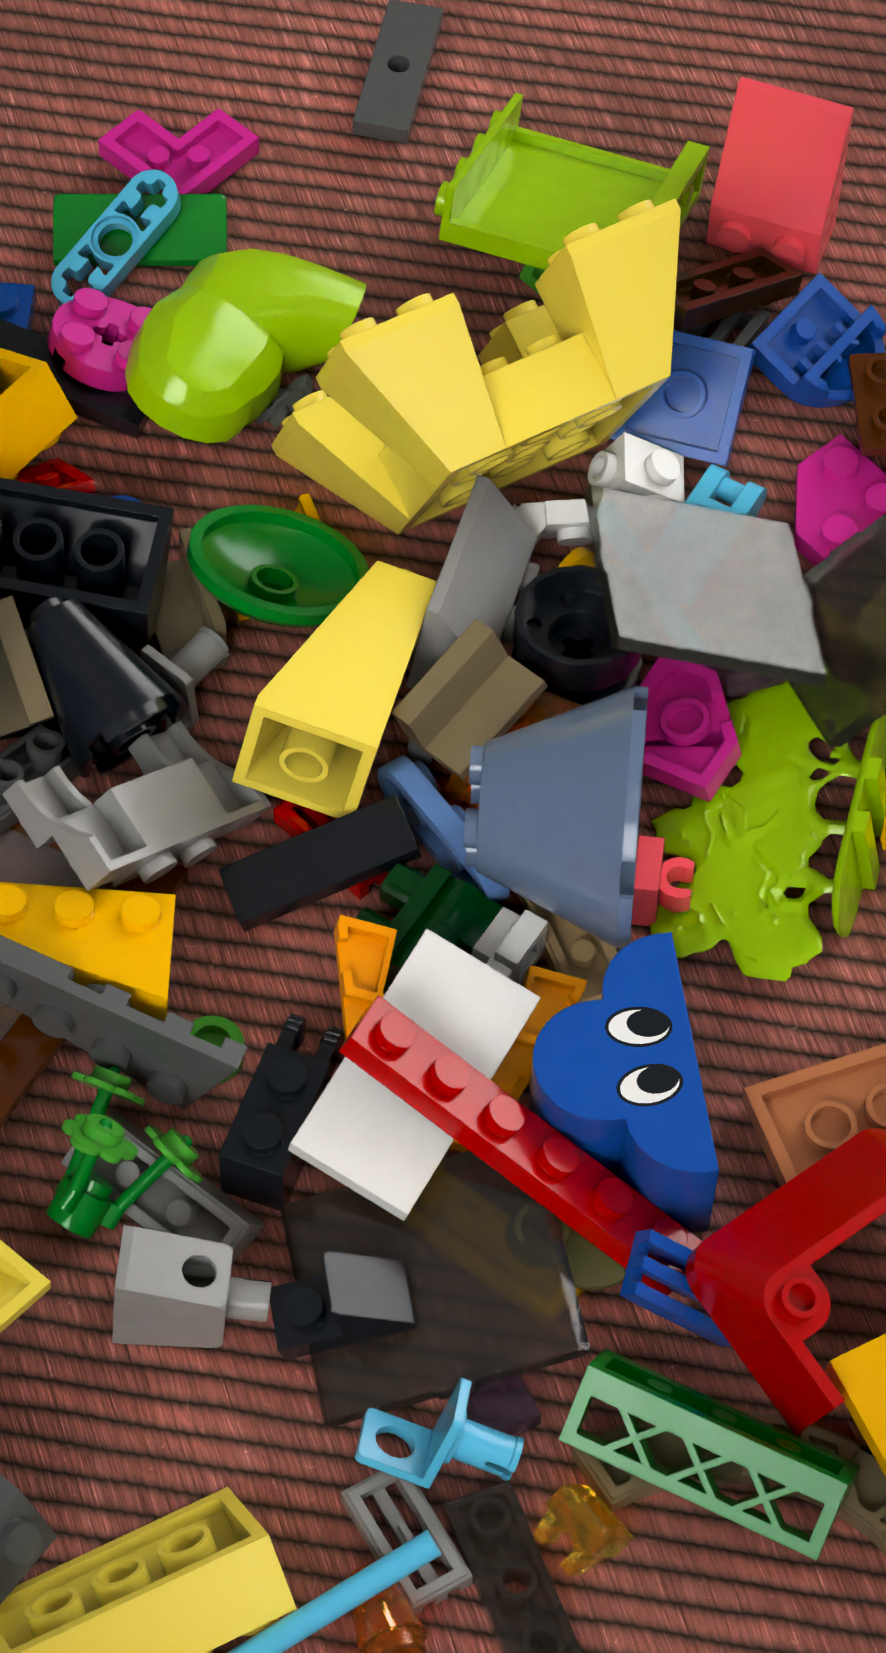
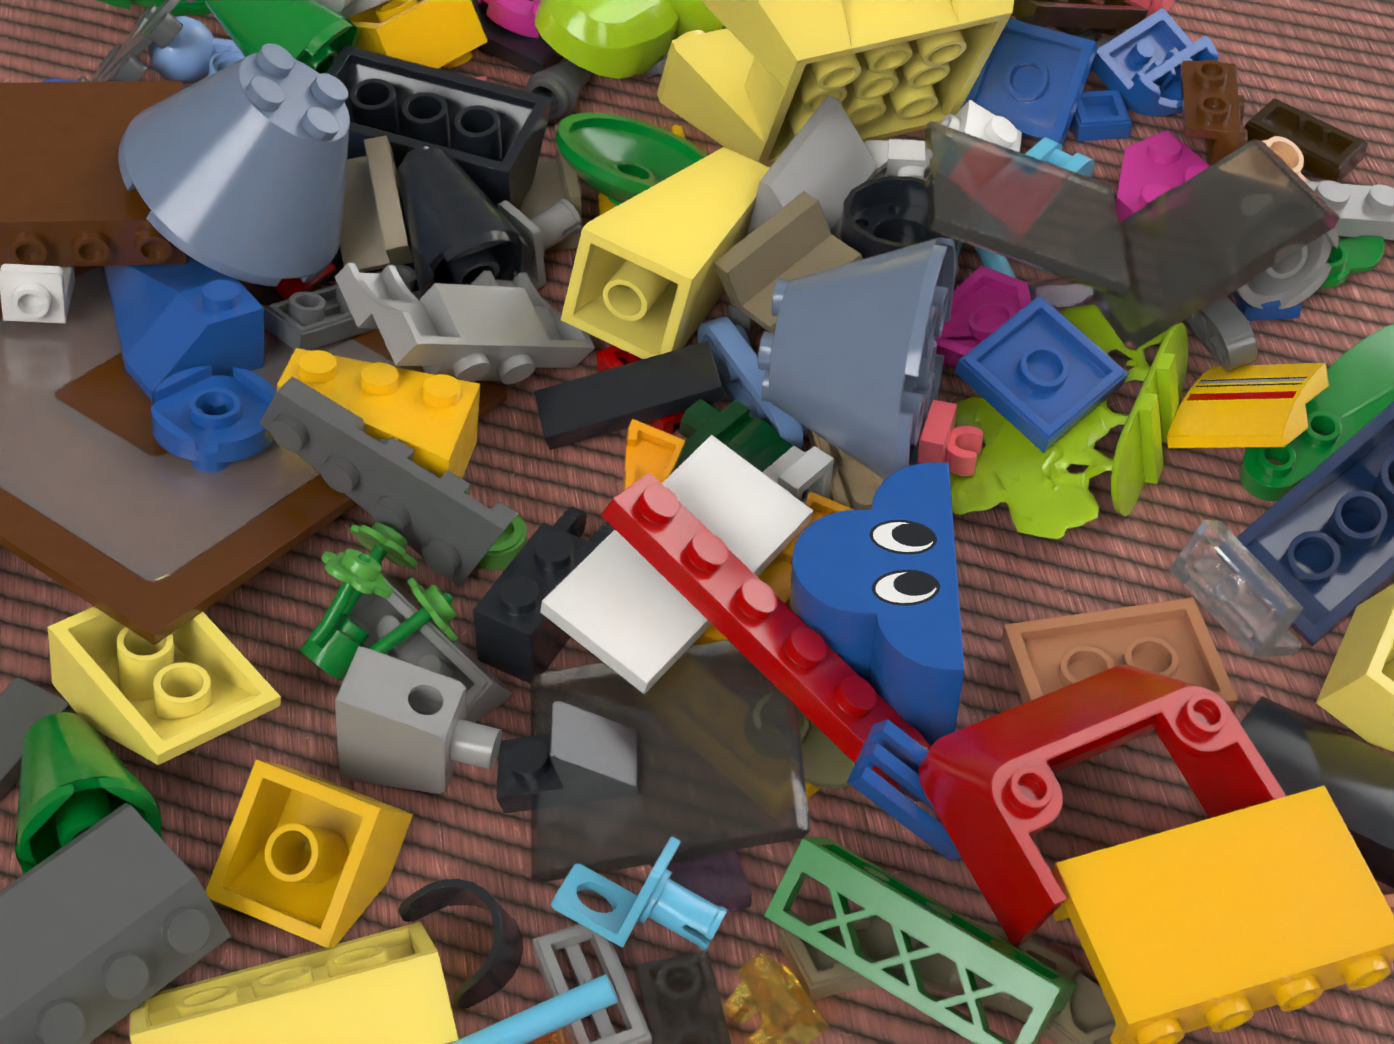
camera: 10 degrees right, 10 degrees down
(107, 1437) = (306, 853): none -> yellow slope
(159, 465) = (562, 84): none -> dark grey cone
(317, 1494) = (507, 941): none -> black helmet
(745, 788) = (1041, 373): none -> blue plate
(767, 420) = (1101, 116): none -> blue tile

